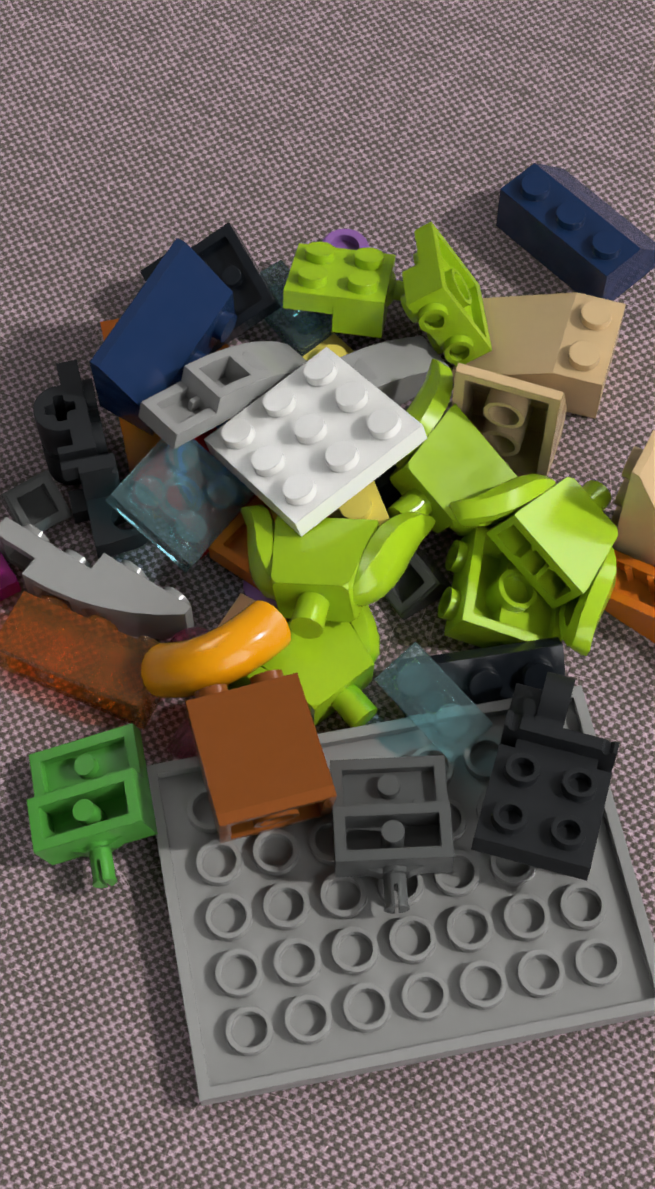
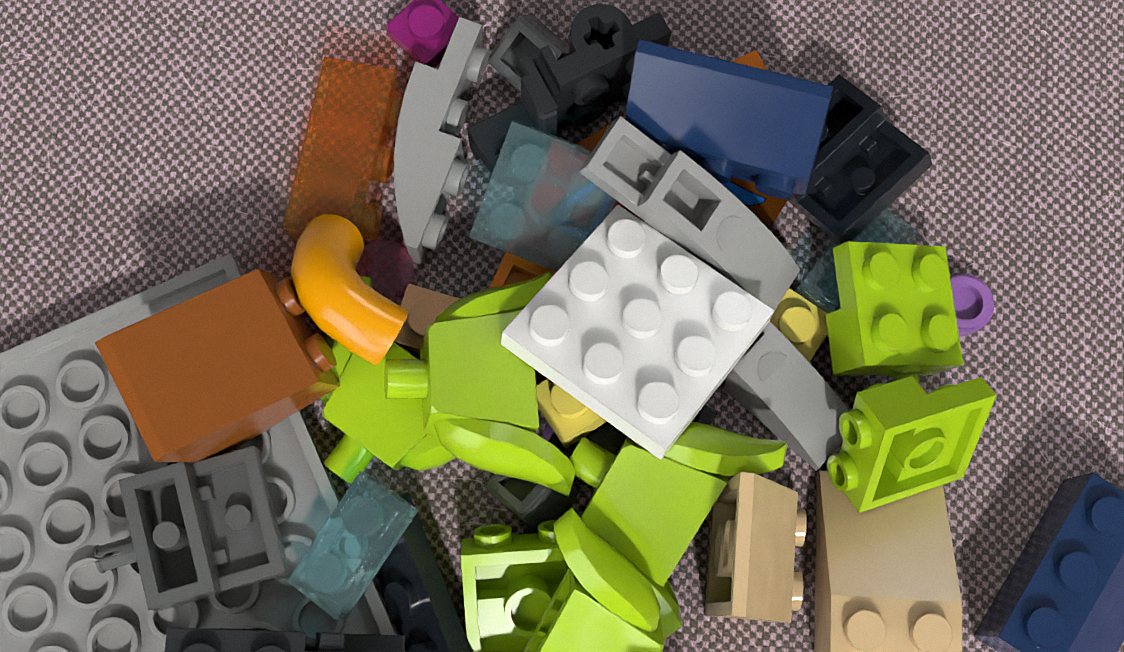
camera: 70 degrees right, 15 degrees up
(91, 800) = (178, 209): bright green plate -> none

